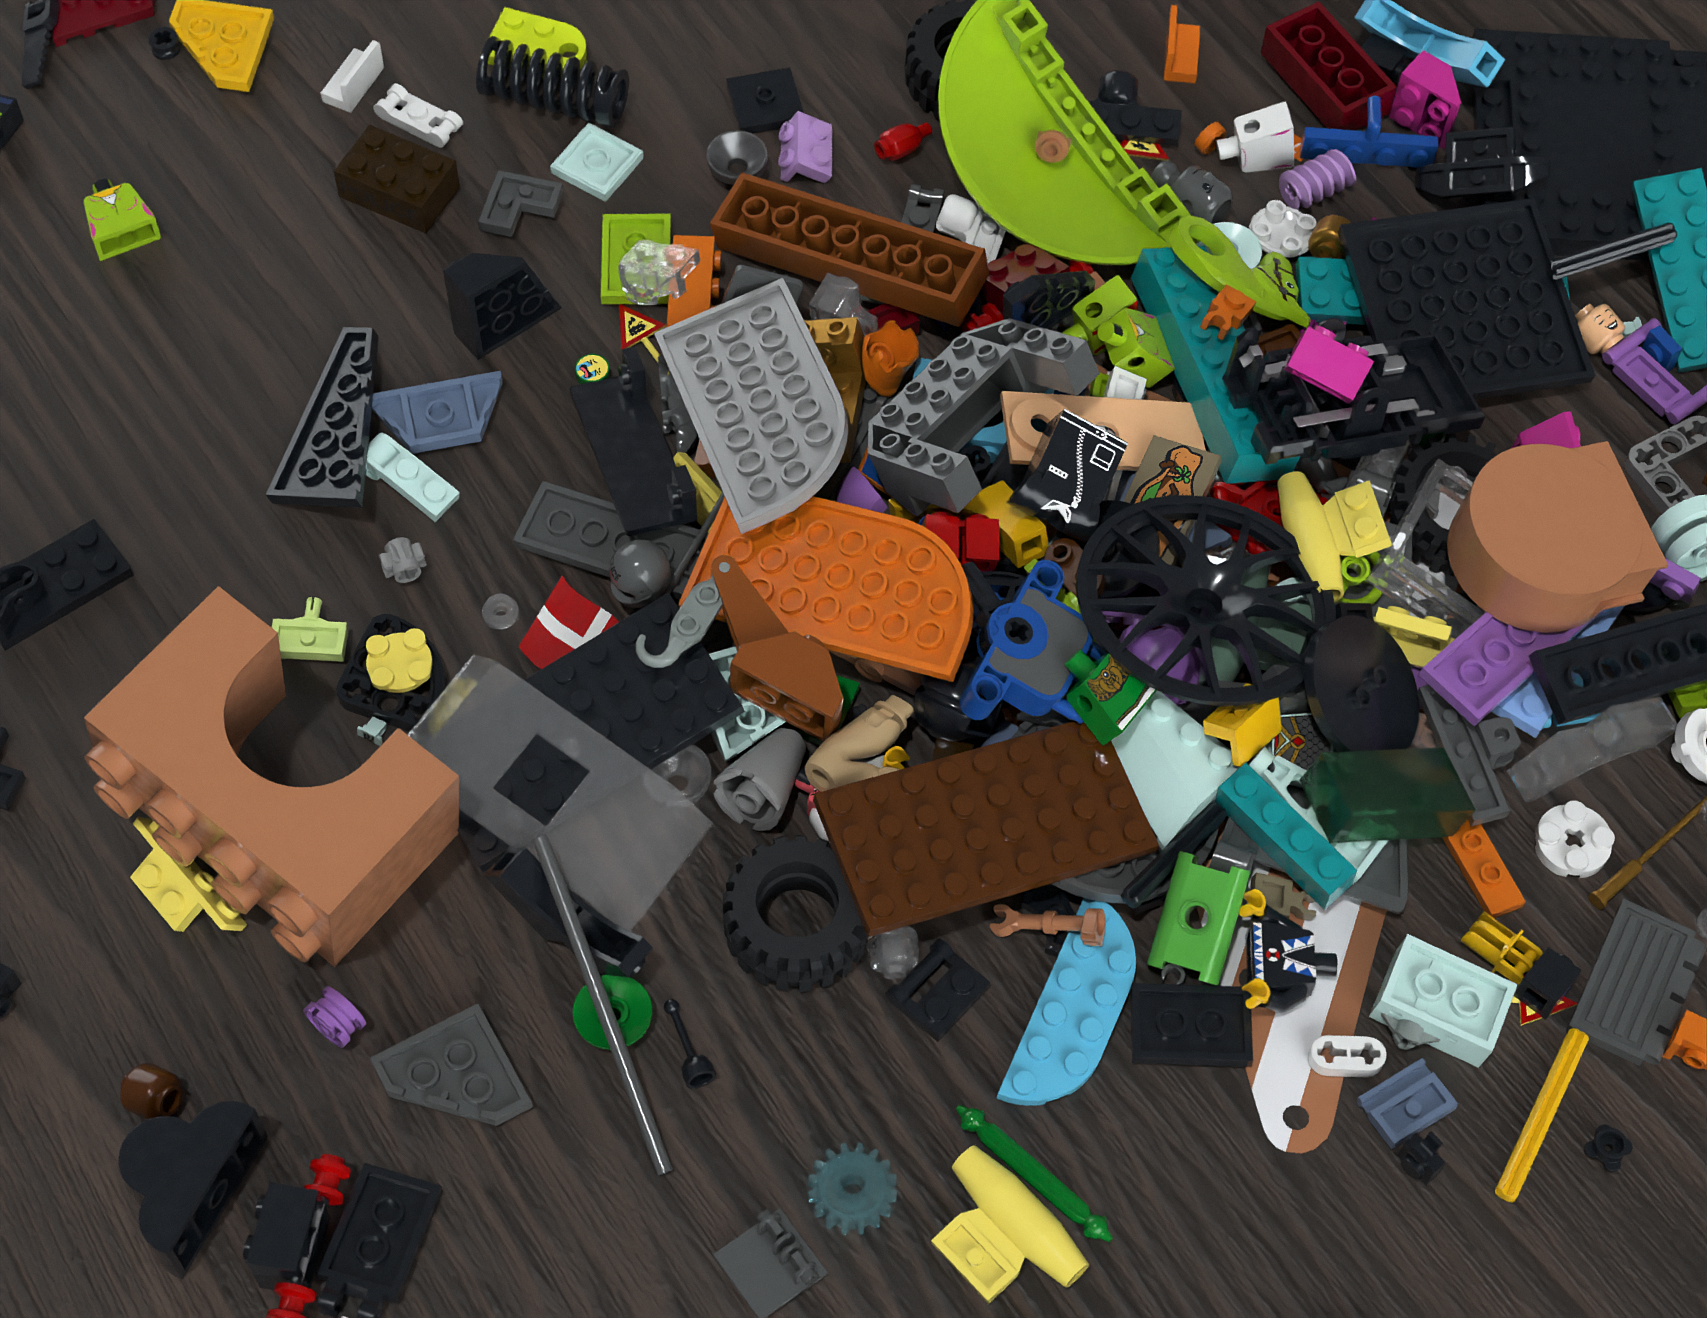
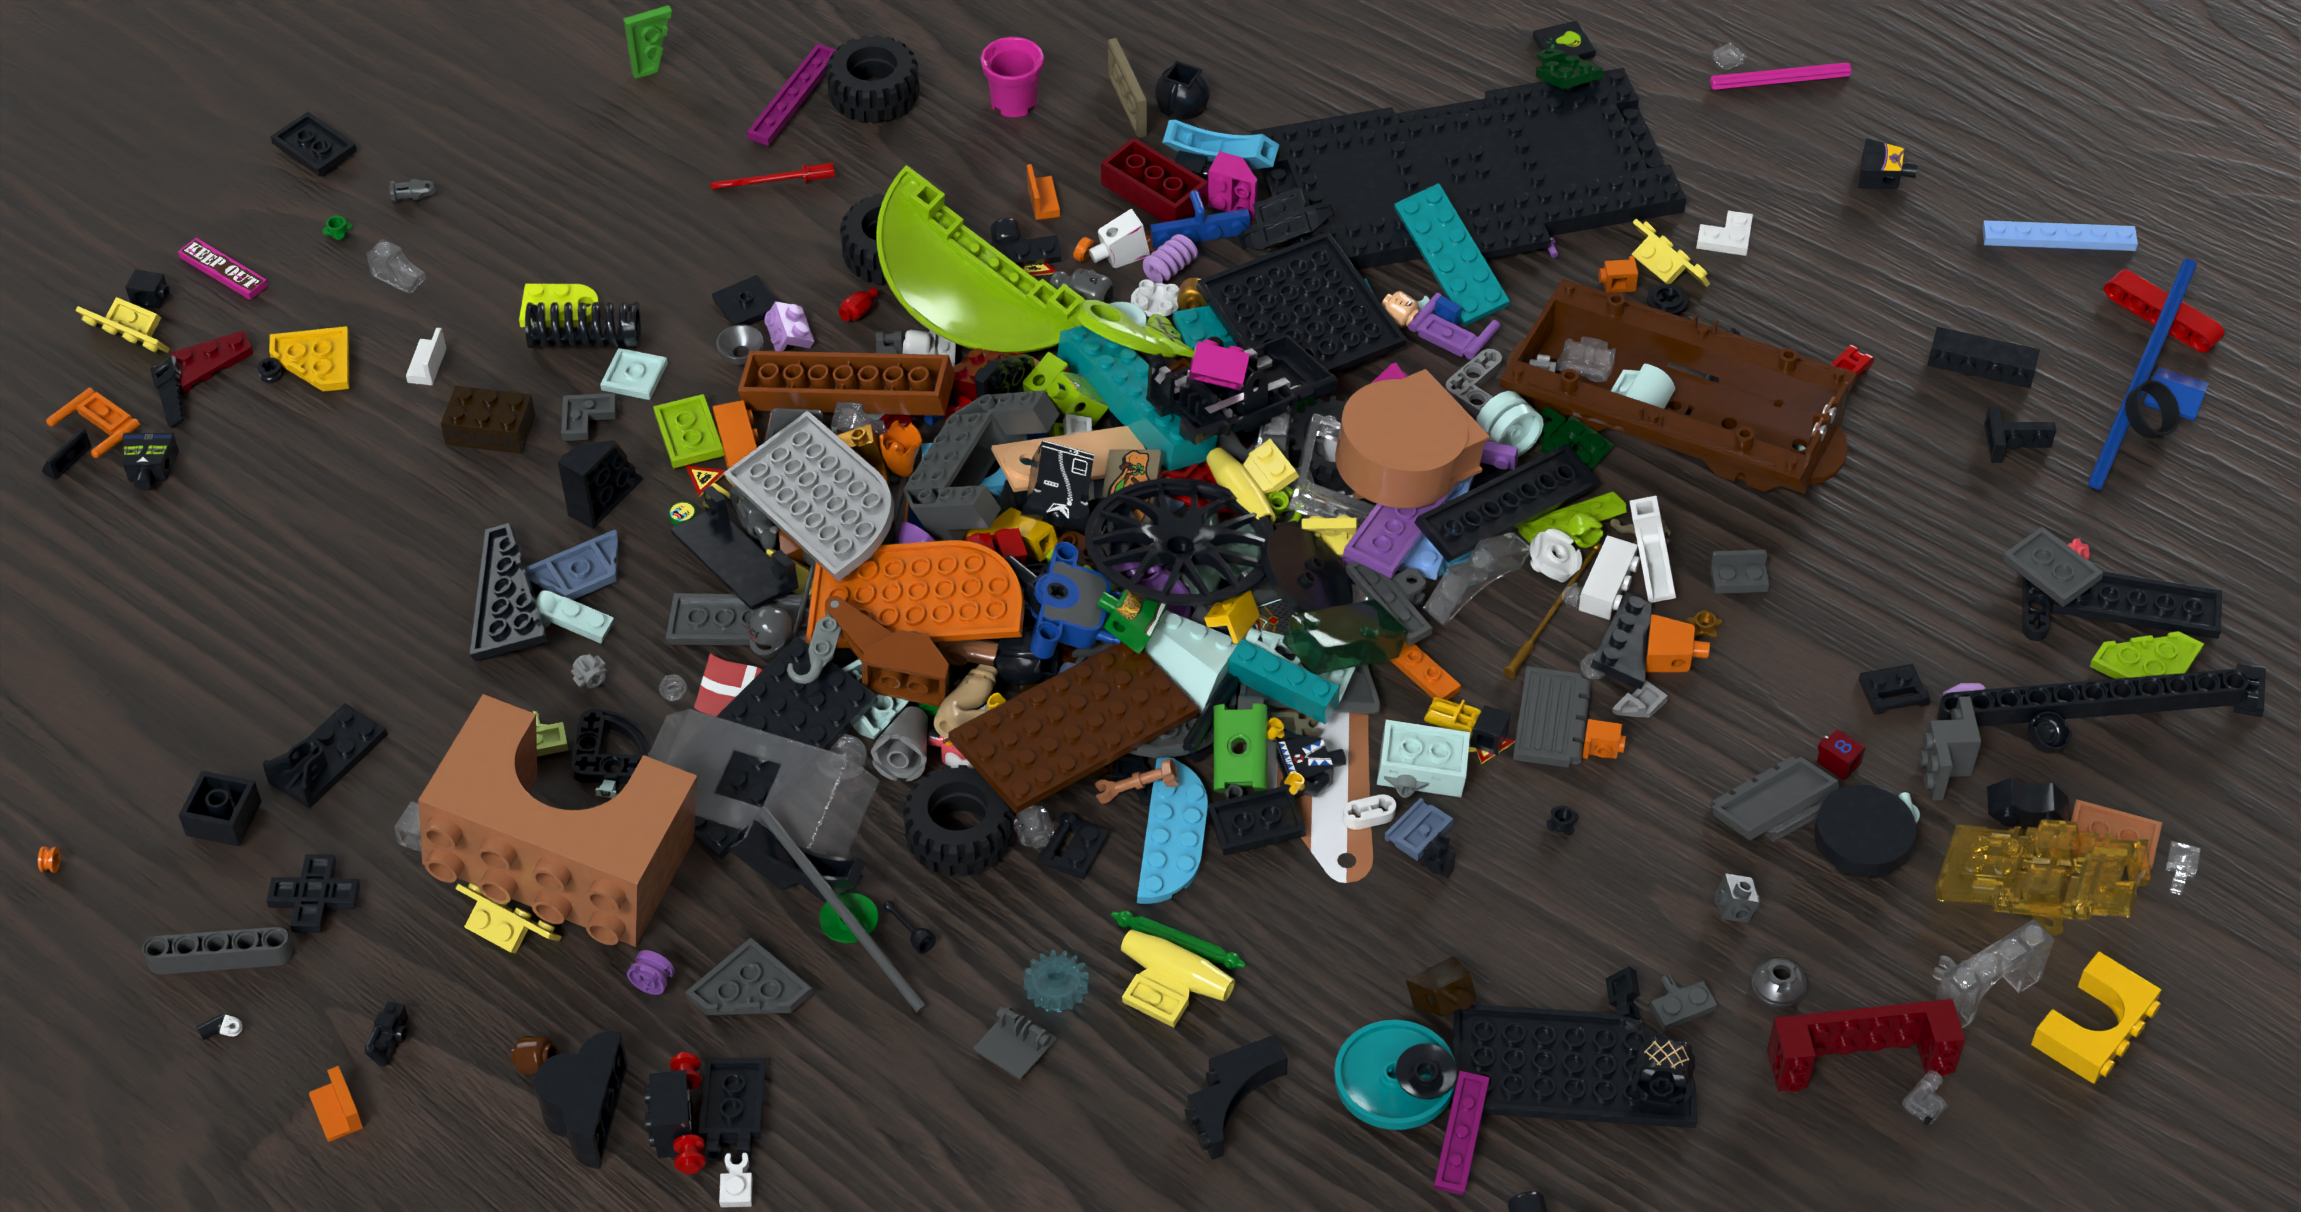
camera: 15 degrees left, 10 degrees down
(118, 219) = (284, 498): lime torso -> none
(398, 661) = (611, 736): light yellow piece -> none
(417, 116) = (486, 374): white plate -> none
(656, 271) = (709, 431): clear slope -> none
(1052, 145) = (971, 279): nougat plate -> none
(1228, 310) = (1134, 355): orange plate -> none
(1541, 1115) = (1512, 813): yellow axle -> none
(1578, 821) = (1482, 627): white plate -> none
(1611, 250) = (1393, 253): black axle -> none

